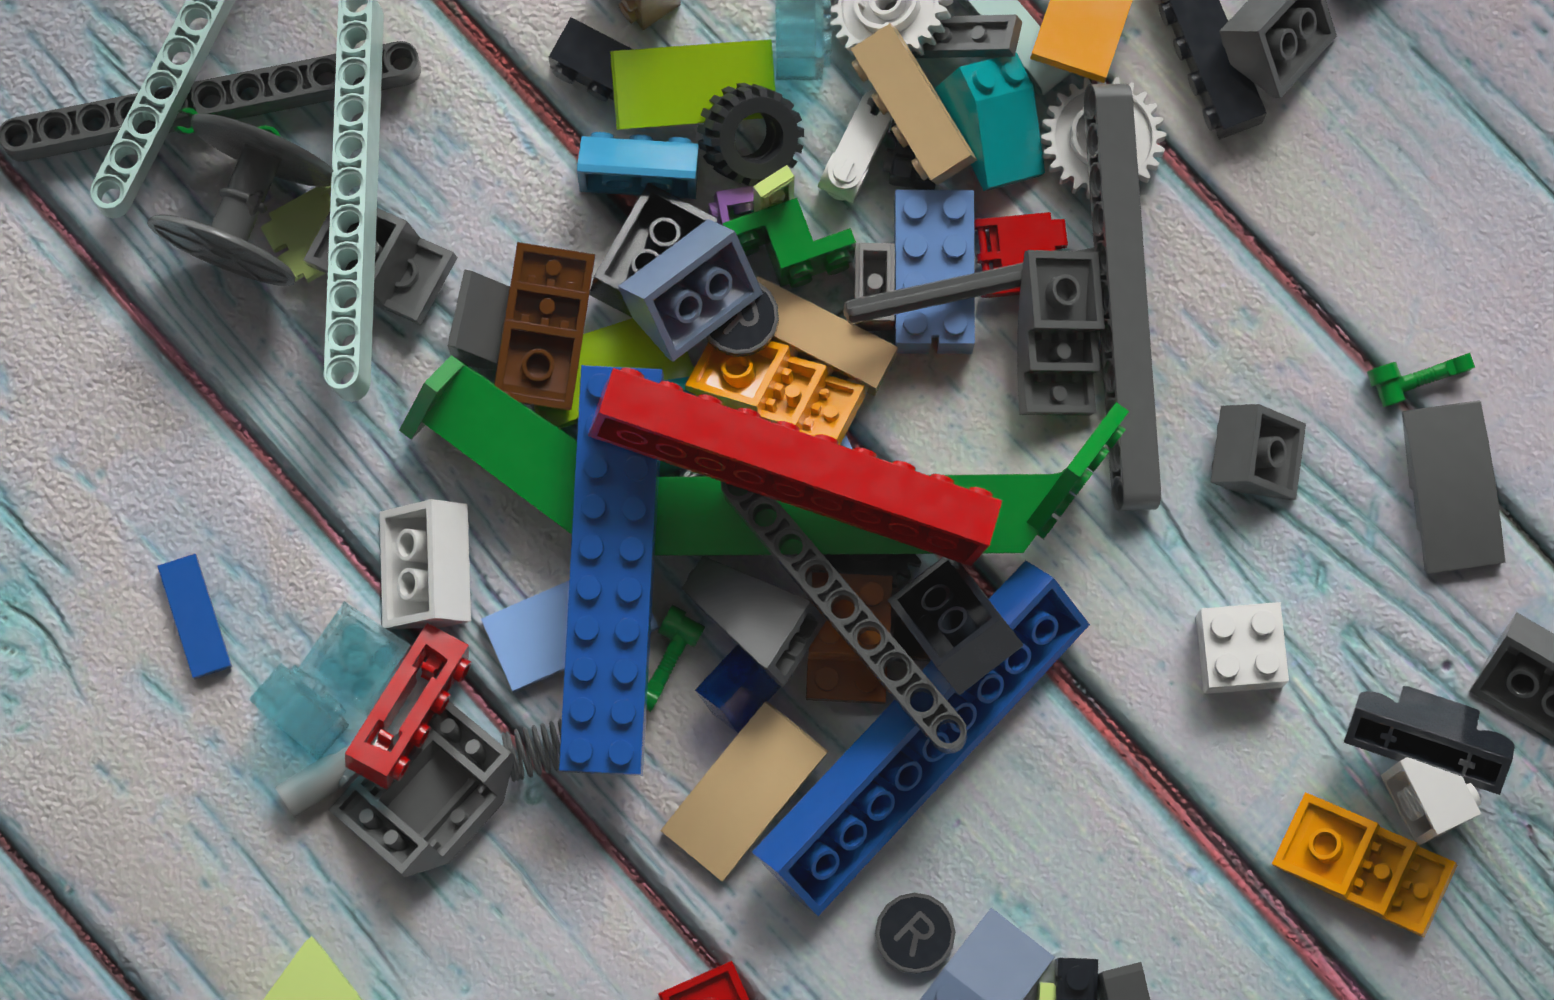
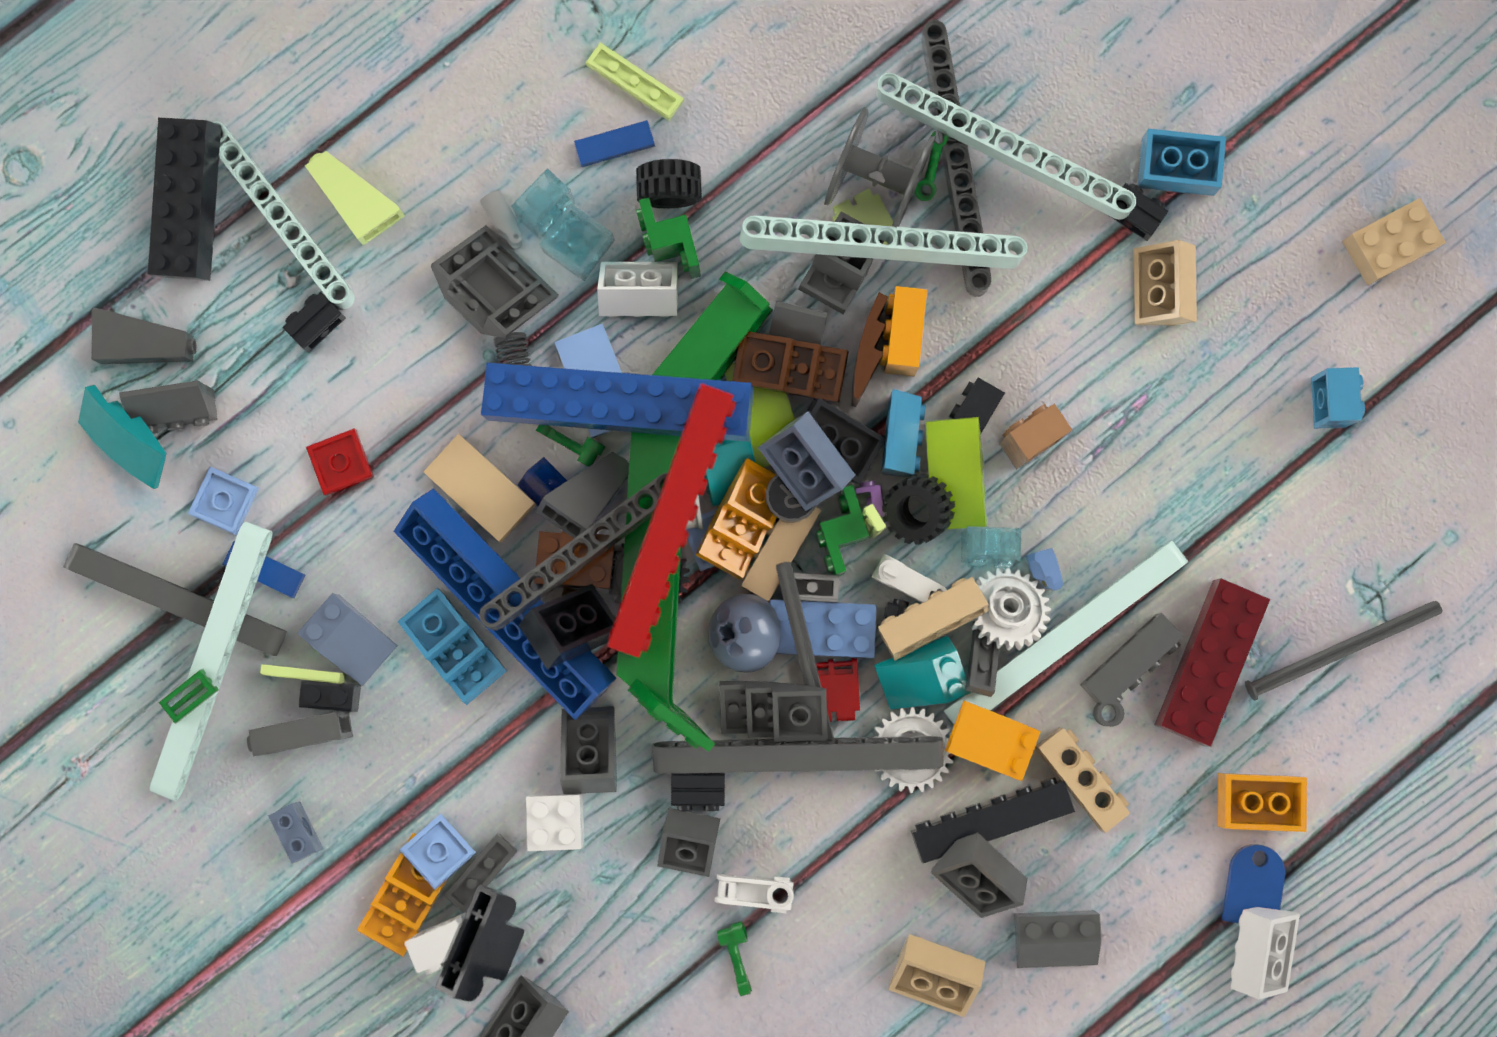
camera: 100 degrees right, 5 degrees up
(94, 591) = (634, 81): none -> yellowish green tile
(264, 520) = (669, 183): none -> black tyre
(349, 518) = (668, 238): none -> green bracket
(376, 761) = (528, 276): brick -> none
(483, 164) = (904, 331): none -> light orange brick
(526, 219) = (867, 356): none -> reddish brown slope
(915, 933) = (382, 595): black tile -> none
(951, 361) = (744, 633): none -> sand blue piece
(987, 820) = (452, 646): none -> dark azure slope
(1135, 604) = (588, 752): none -> dark grey slope
(1182, 441) = (698, 790): none -> black brick
(1298, 821) = (437, 851): none -> light blue tile
(1323, 353) = (754, 892): none -> white piece
(1324, 756) = (481, 872): none -> dark grey plate
(1423, 91) = (937, 975): none -> tan slope
(1453, 486) = (658, 974): dark grey slope -> none

